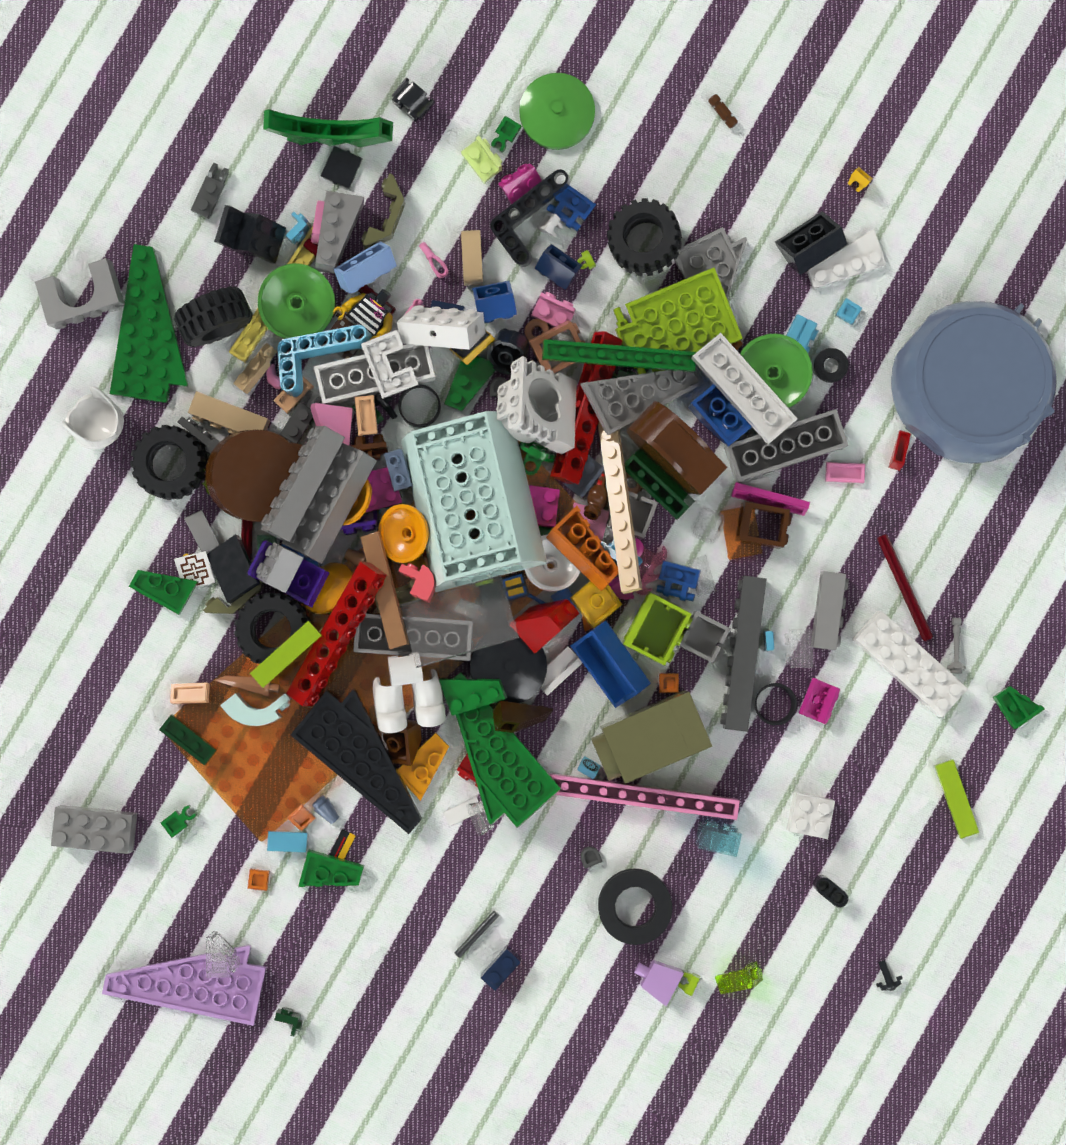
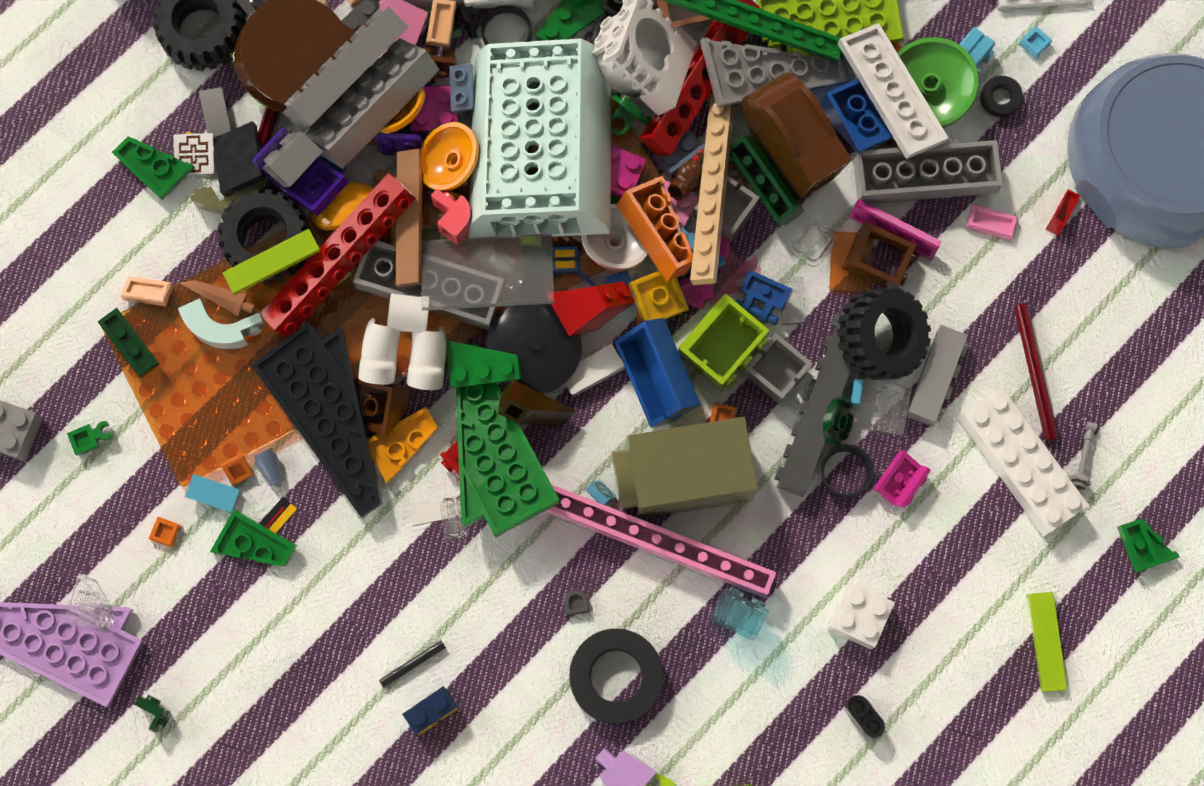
camera: 15 degrees right, 10 degrees down
(760, 668) = (838, 421): none -> dark green tile
(800, 594) = (908, 329): none -> black tyre

